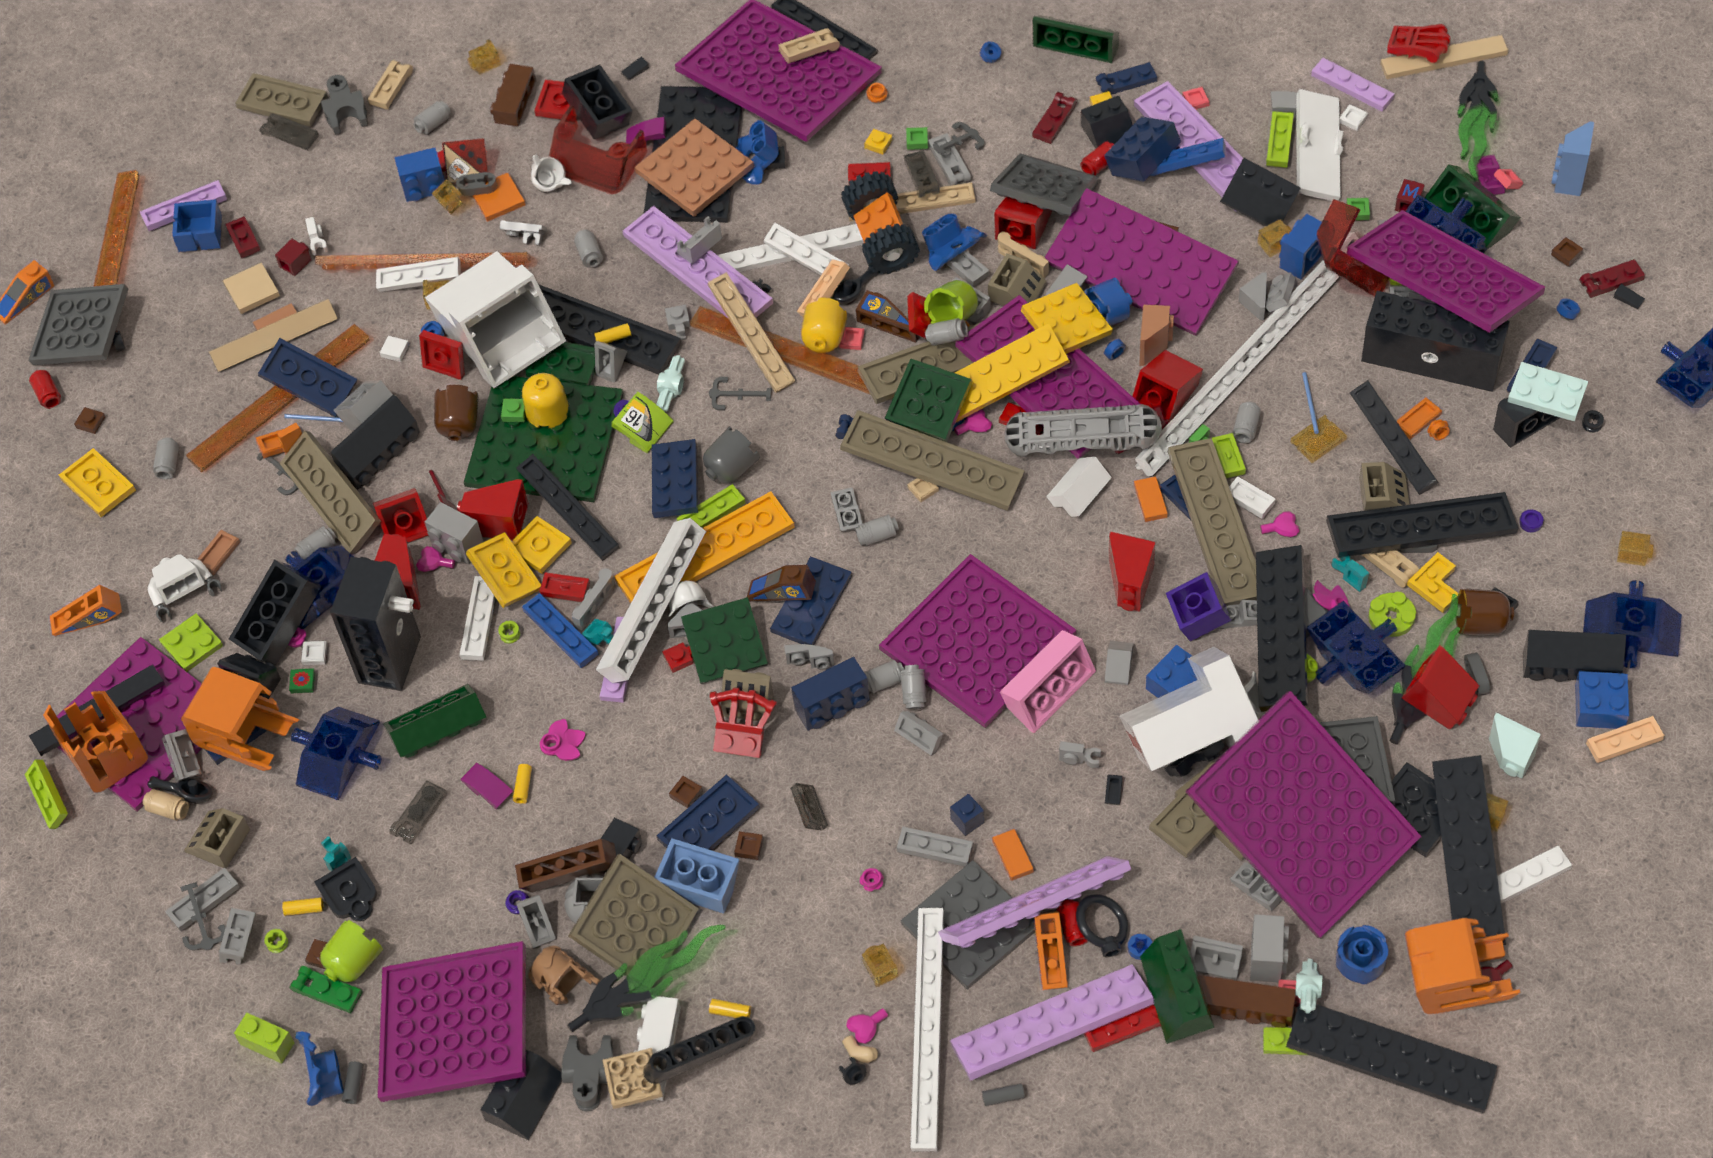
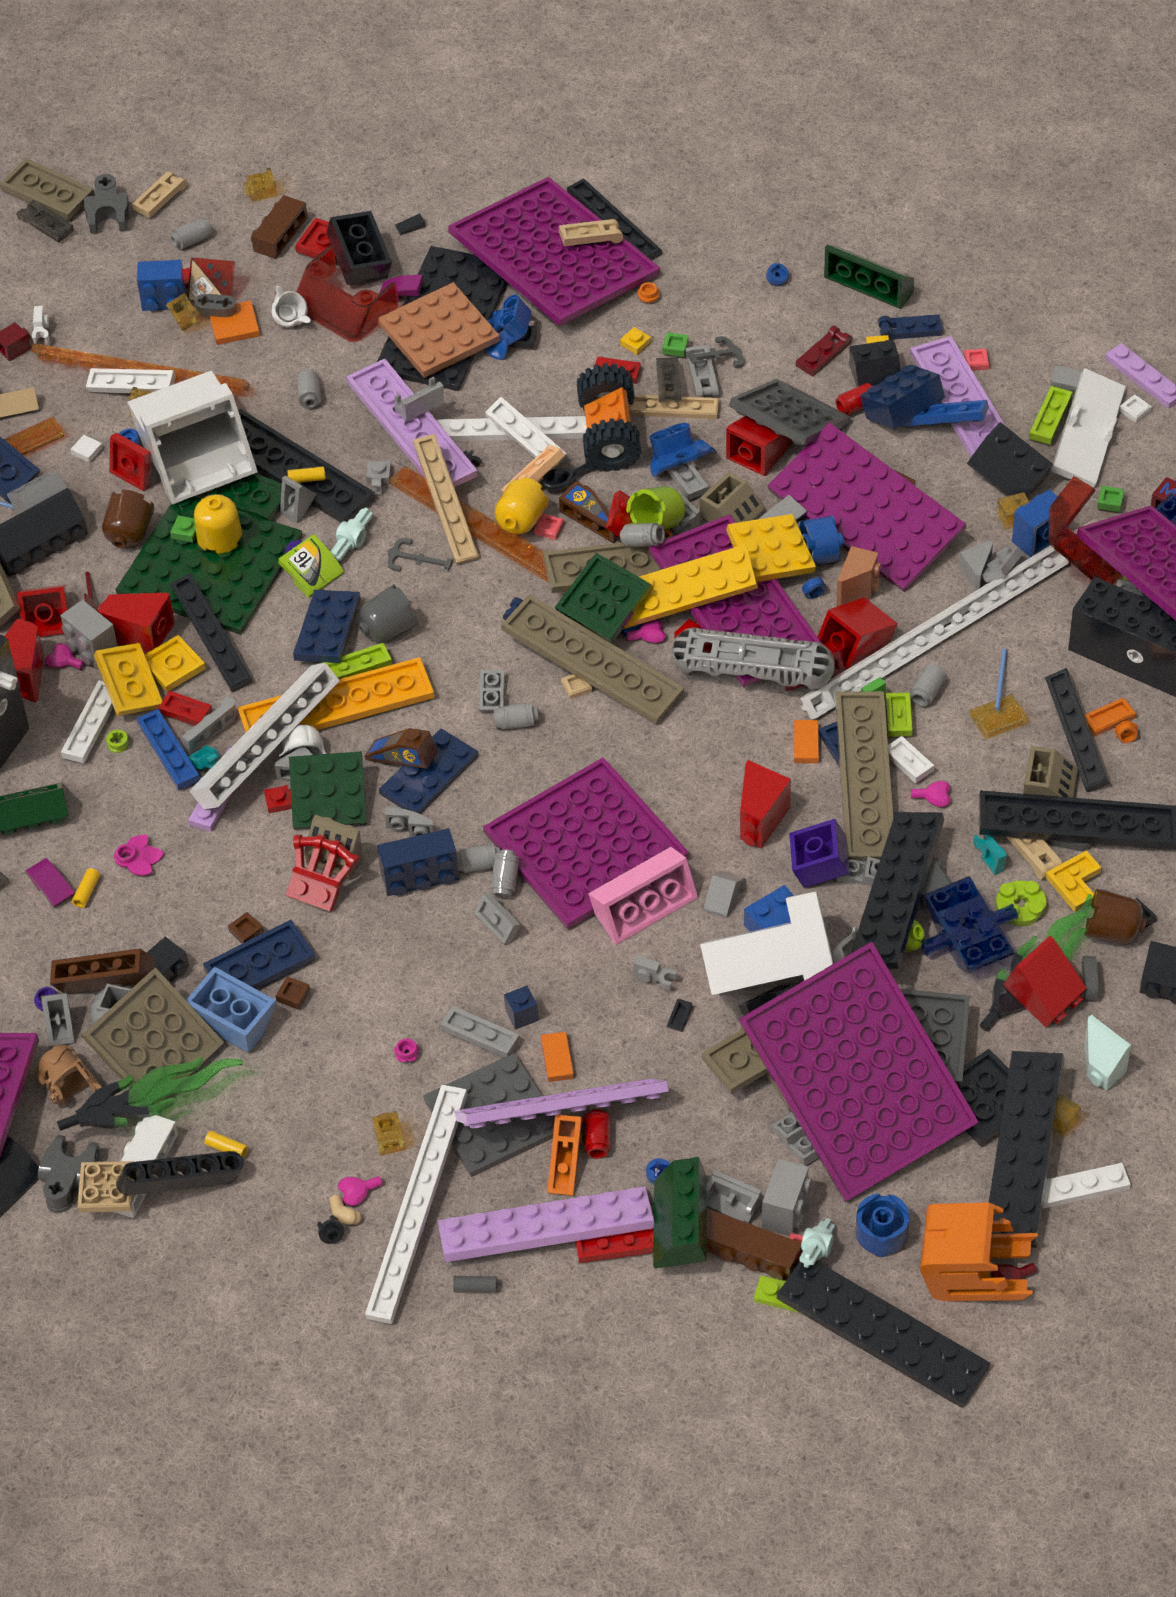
camera: 10 degrees right, 5 degrees down
(528, 230) = (253, 359): plate -> none
(809, 806) = (364, 967): clear smoke plate -> none
(1011, 247) = (737, 467): tan plate -> none
(1079, 486) = (736, 713): white piece -> none
(1109, 945) = (627, 1162): black piece -> none
(1327, 598) = (955, 871): dark pink plate -> none

